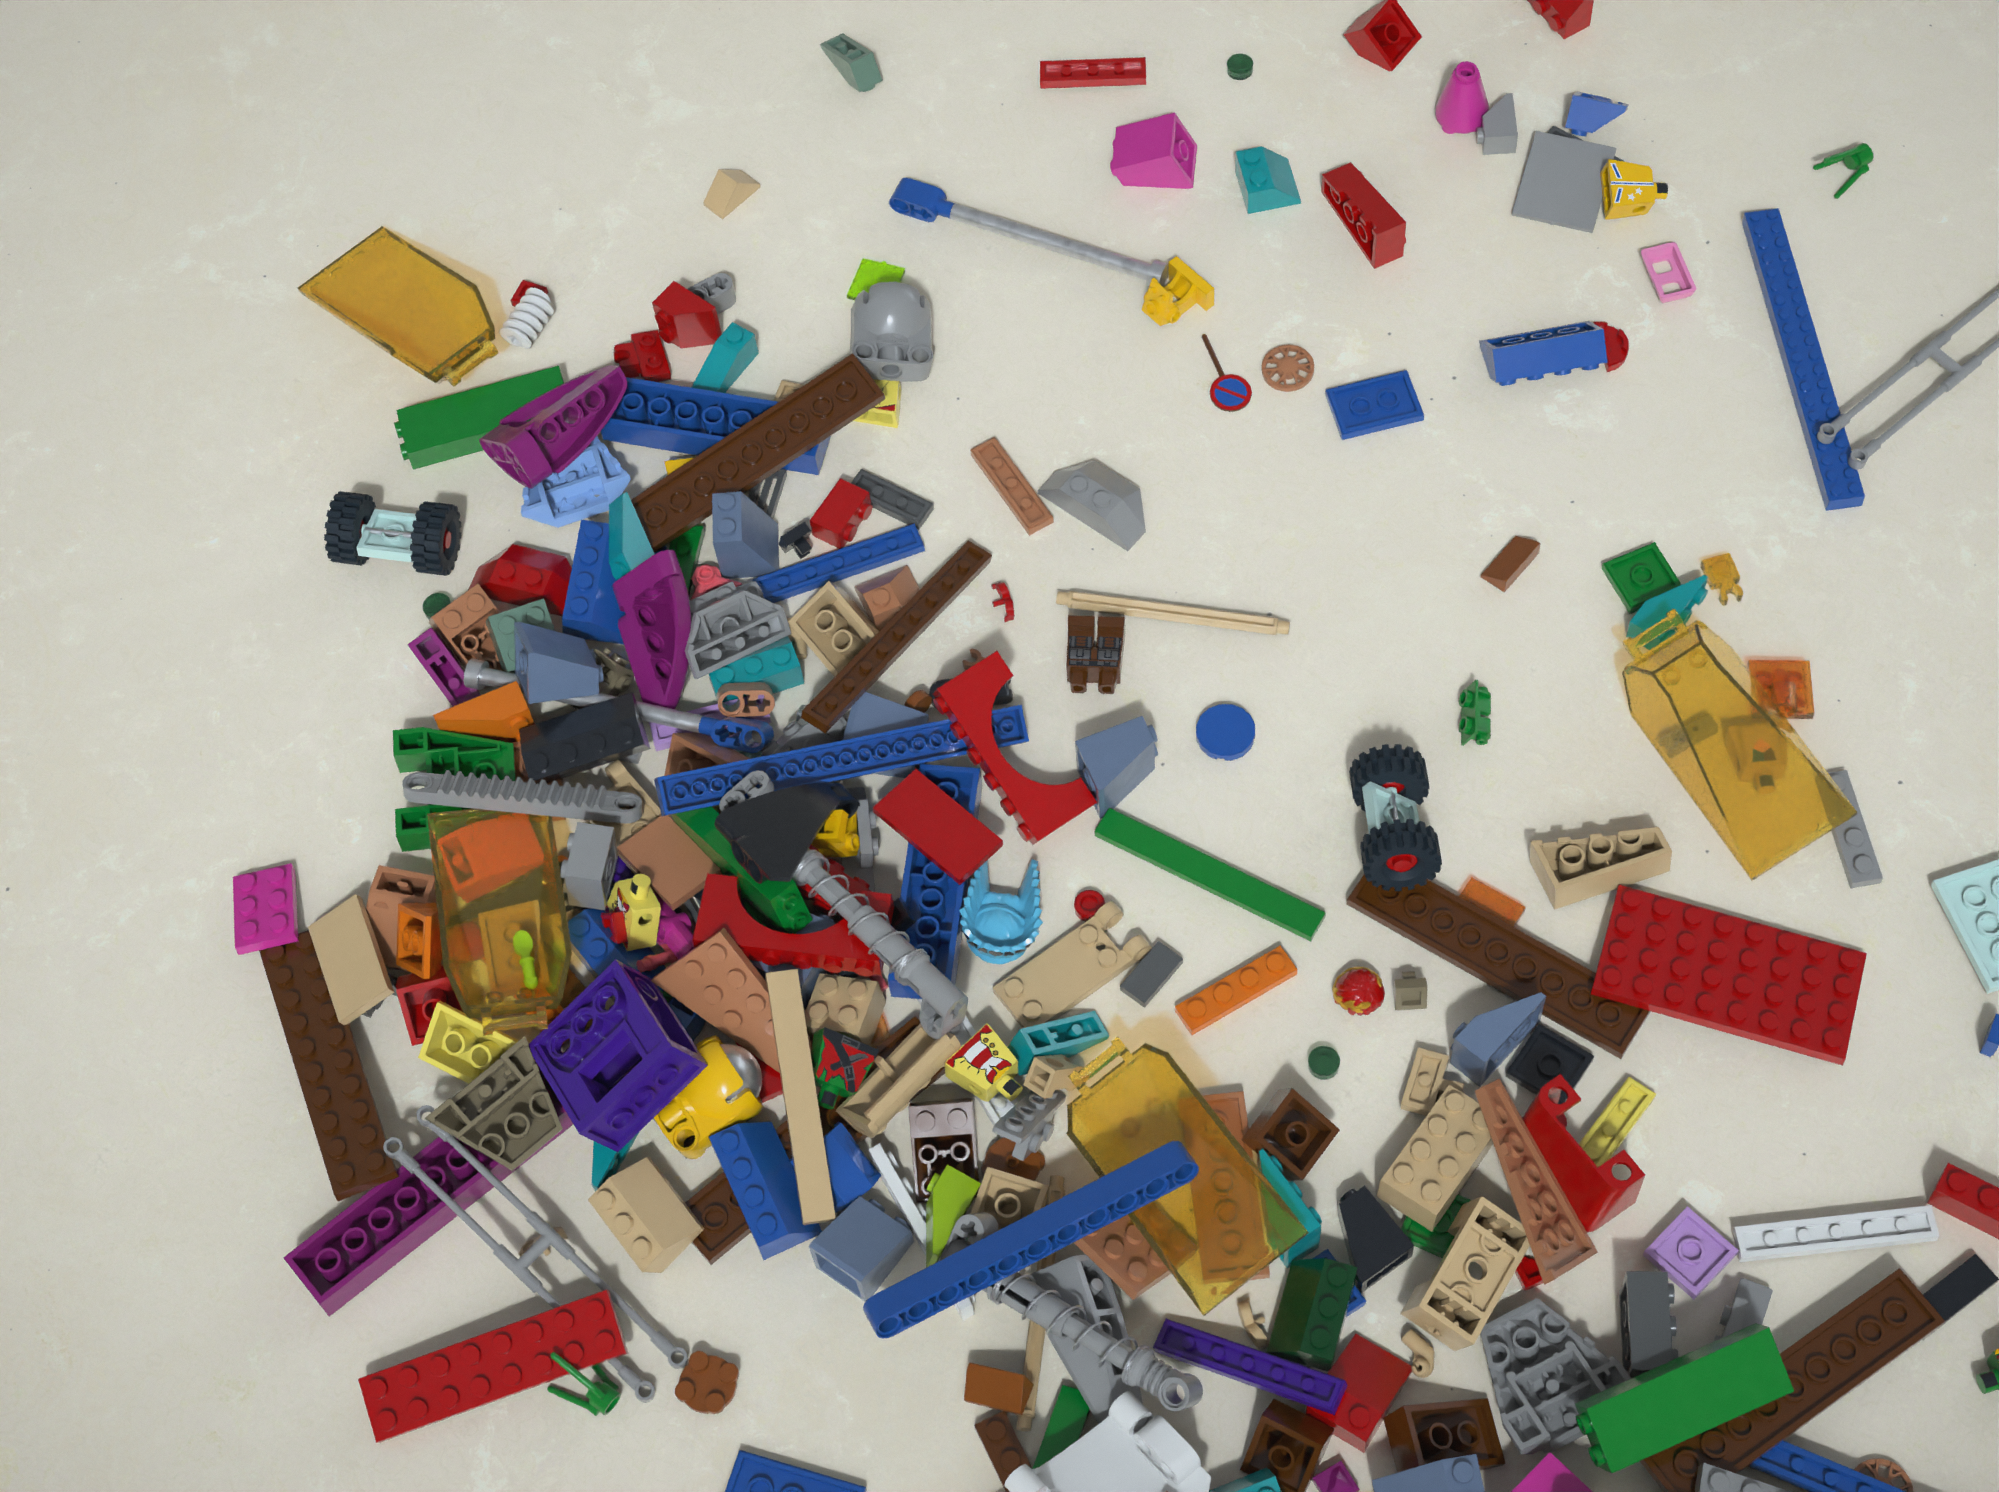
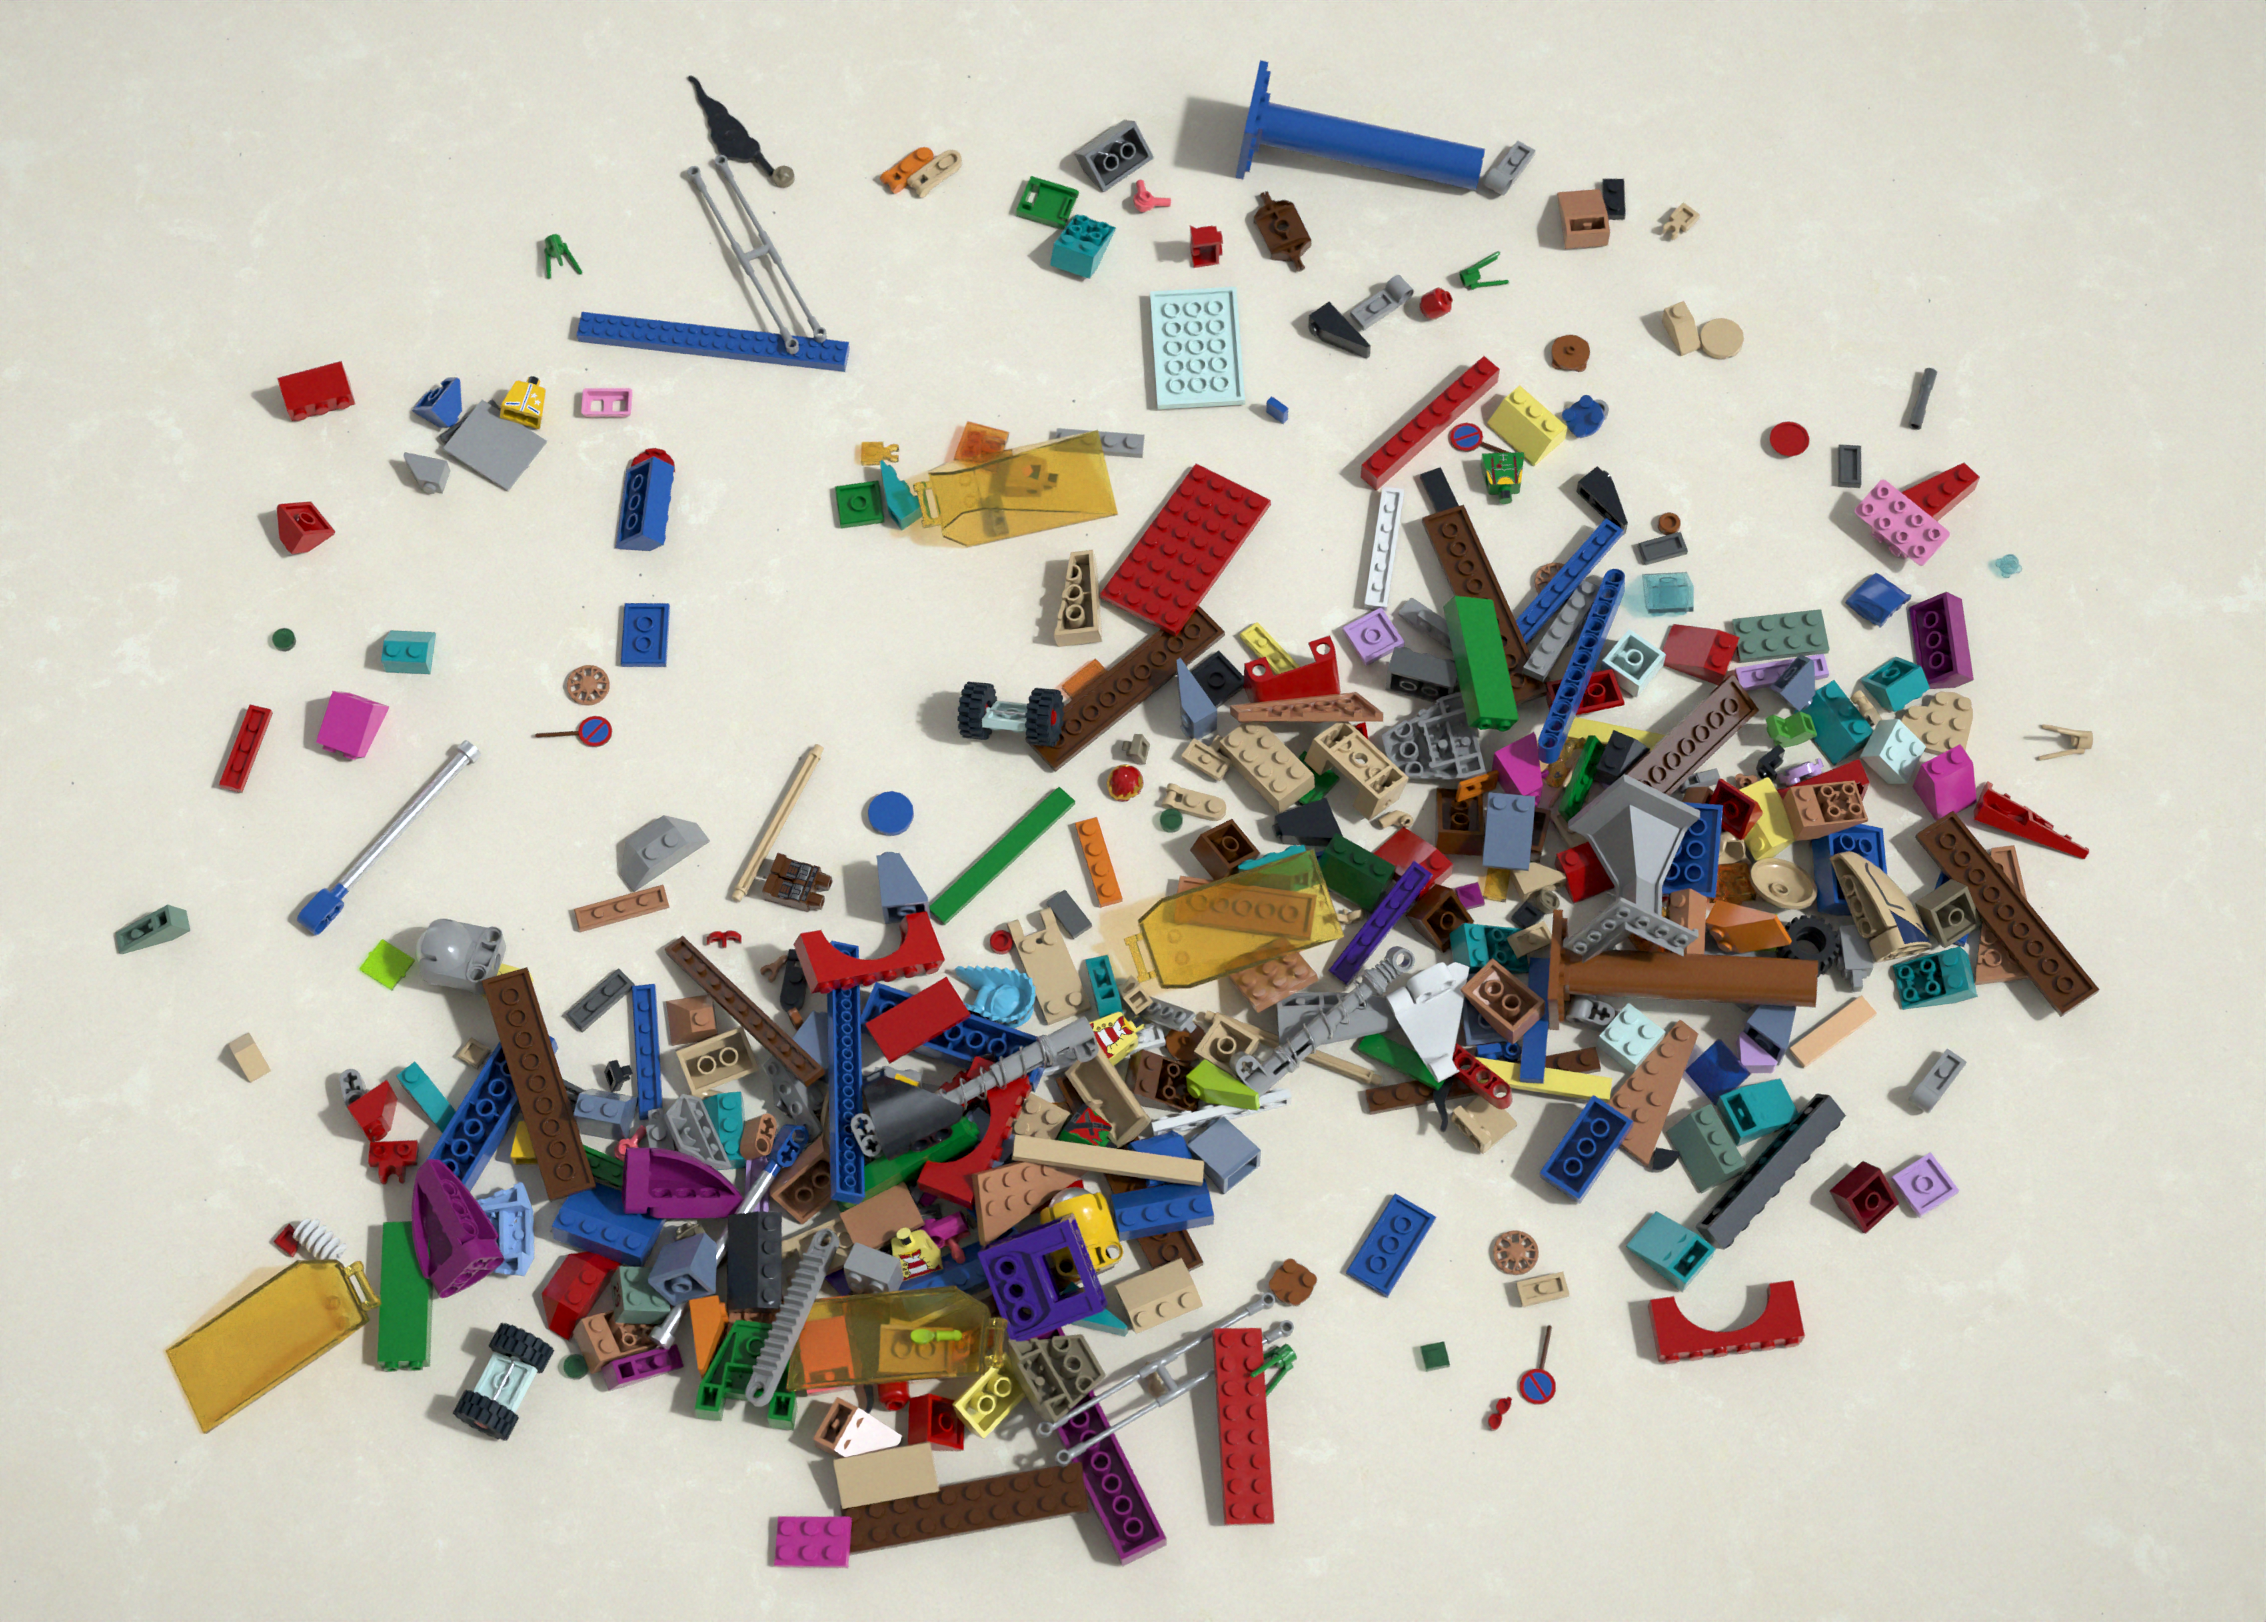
camera: 80 degrees left, 5 degrees up
(418, 939) = (894, 1411): orange slope -> none
(616, 923) = (921, 1269): red tile -> none
(626, 537) = (591, 1195): teal slope -> none
(841, 514) = (605, 1036): red brick -> none
(997, 1388) = (1351, 1089): dark orange slope -> none
(1030, 1239) = (1267, 1027): blue beam -> none
(1184, 286) = (488, 733): yellow tile -> none
(1358, 1086) = (1194, 803): none -> tan plate
(1365, 214) = (472, 588): red wedge -> none
(1462, 101) = (396, 490): dark pink cone -> none
(1474, 703) = (928, 644): green hinge -> none
(1503, 1449) = (1477, 785): none -> orange slope
(1511, 562) = (816, 583): dark orange slope -> none

